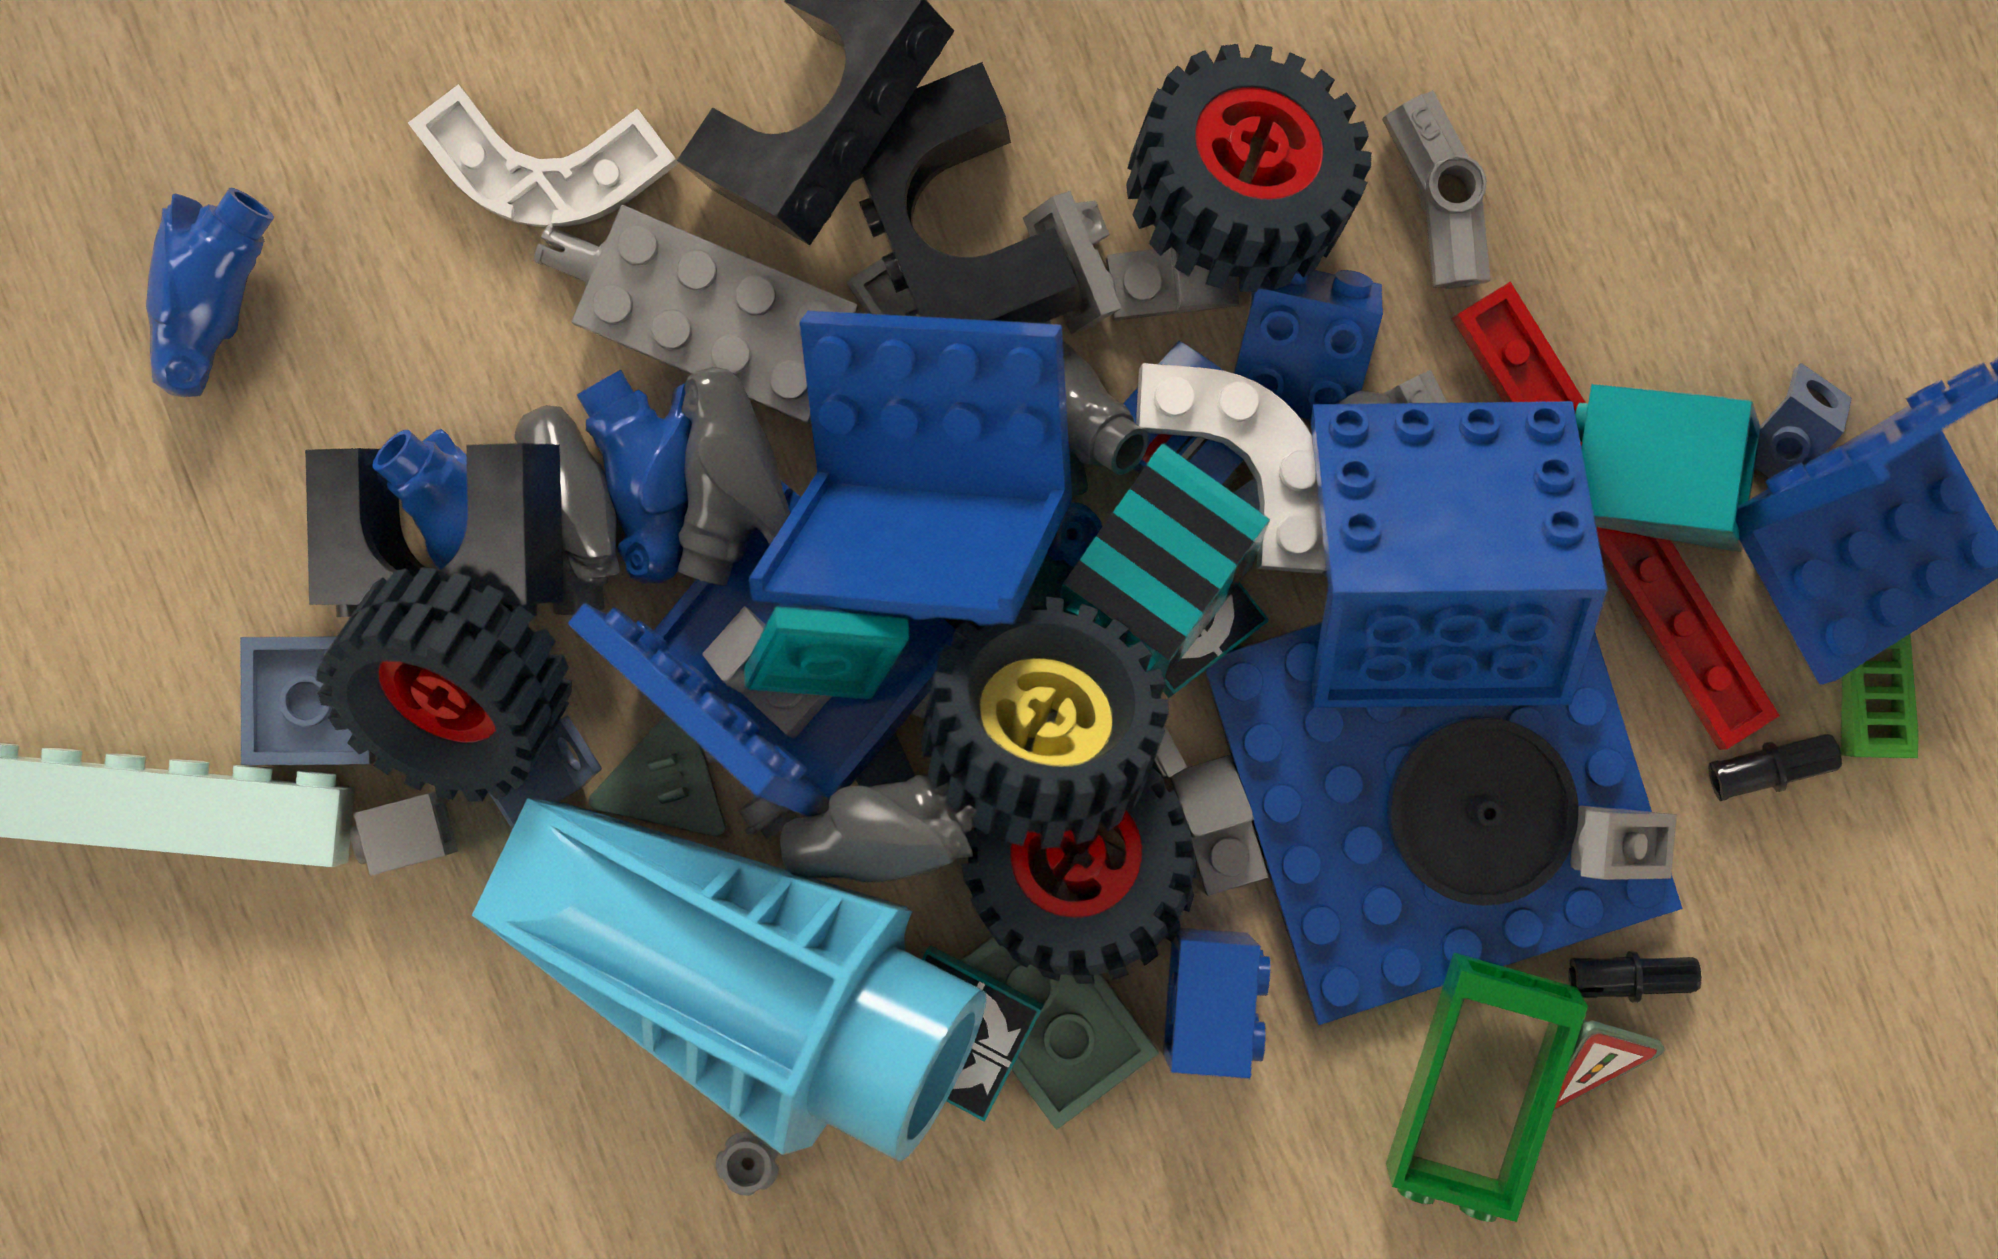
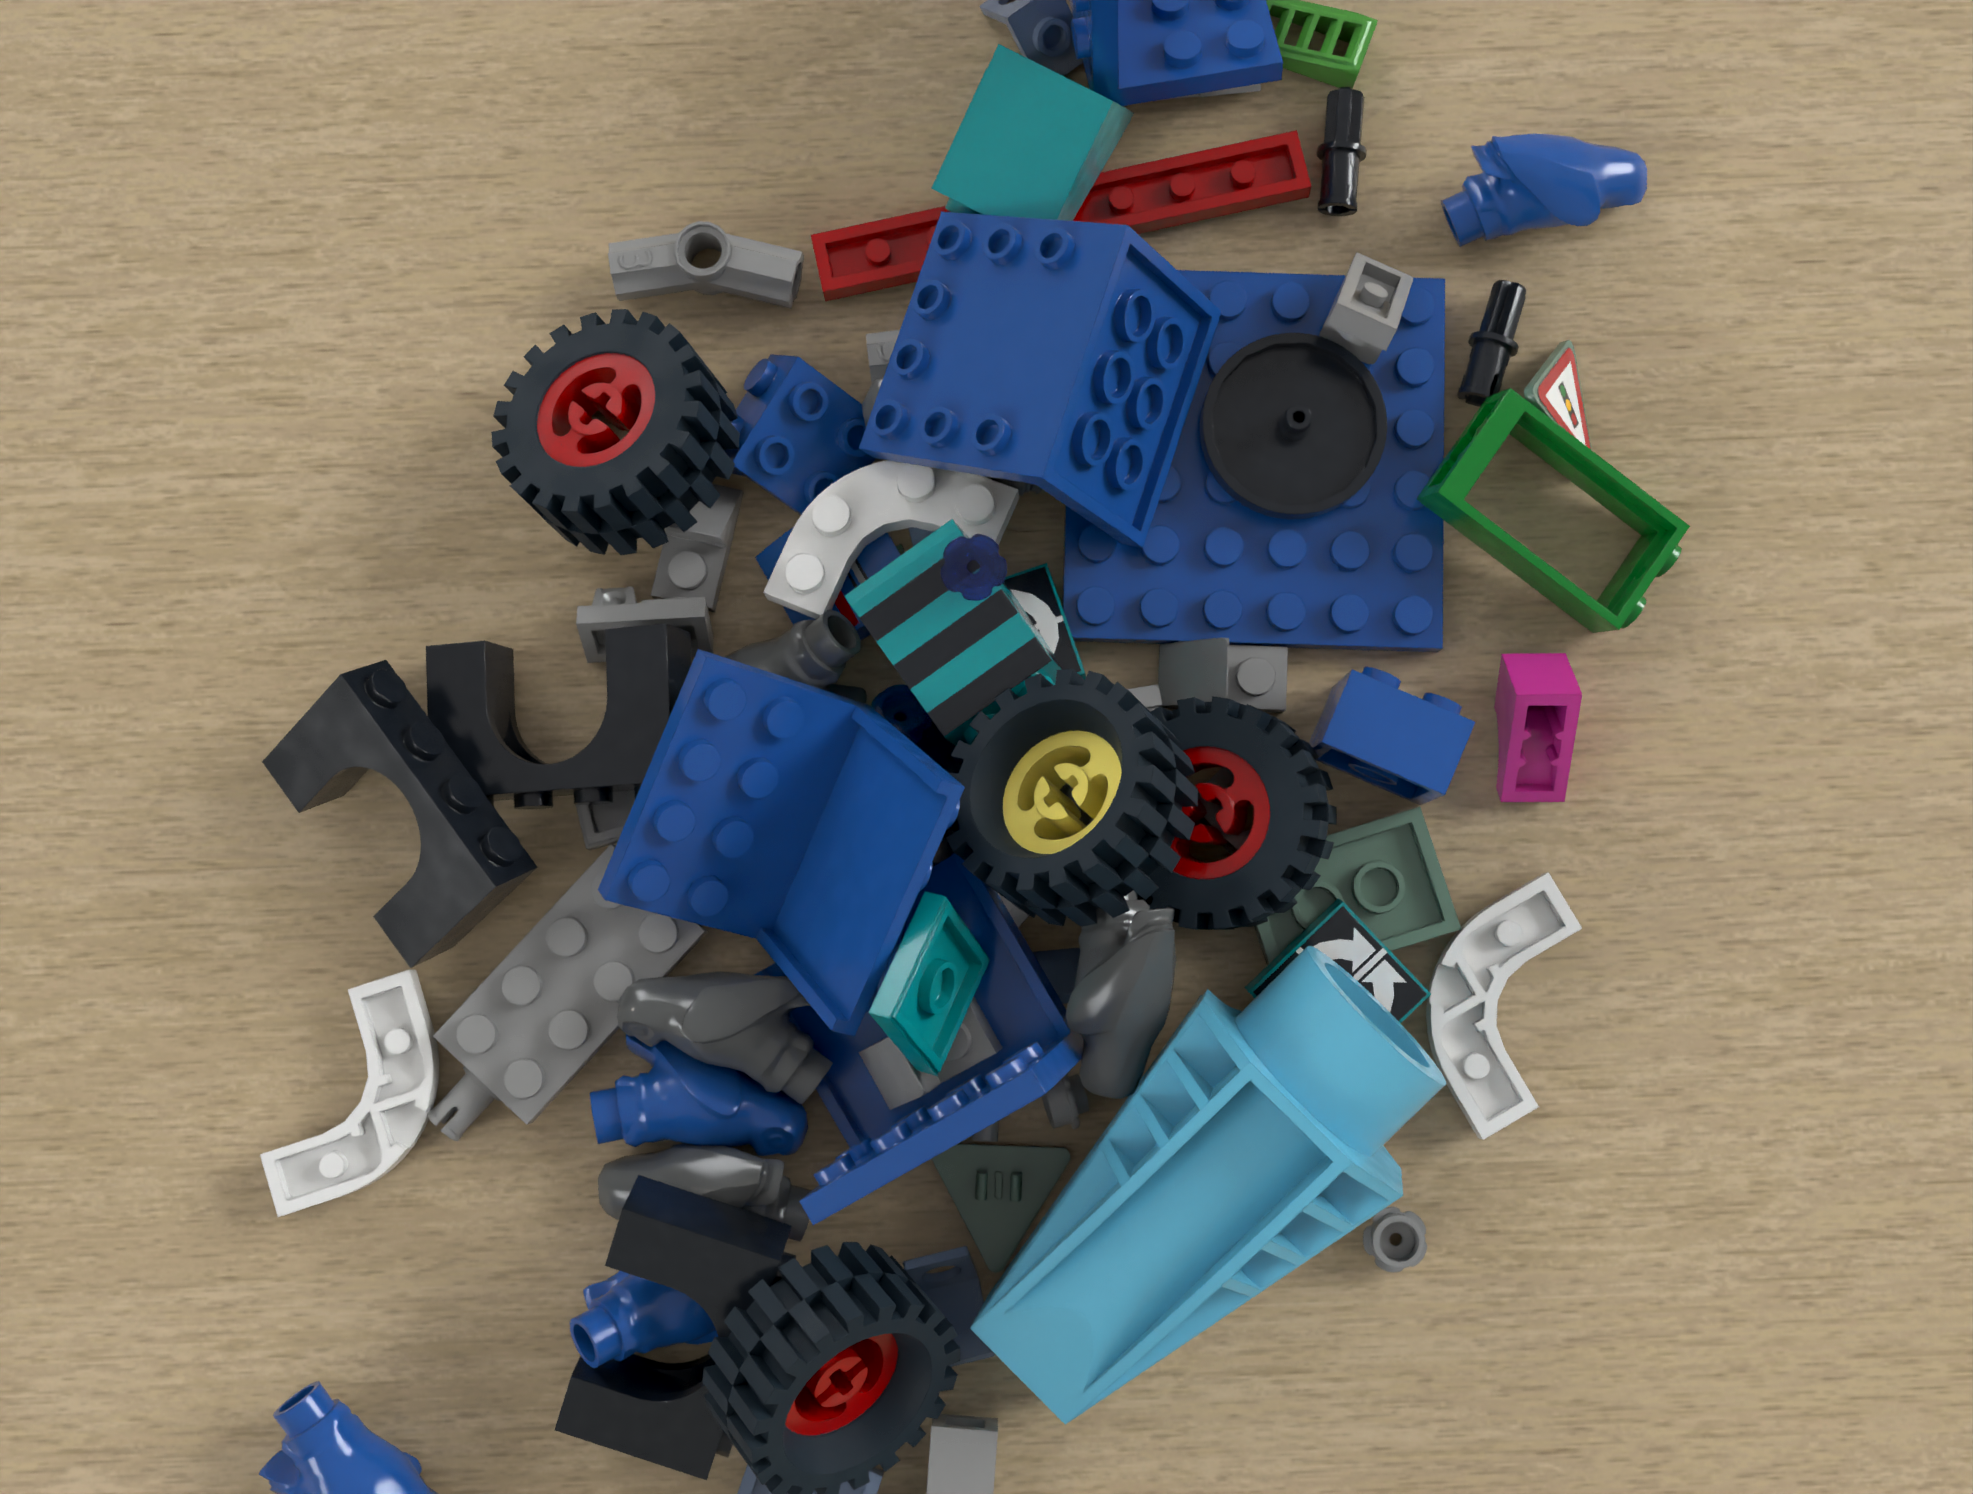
camera: 60 degrees left, 5 degrees down
(996, 1155) = (1466, 996): none -> white plate
(1212, 562) = (955, 572): none -> clear blue plate
(1273, 1138) = (1536, 726): none -> dark pink arch
(1806, 973) = (1542, 184): none -> blue animal

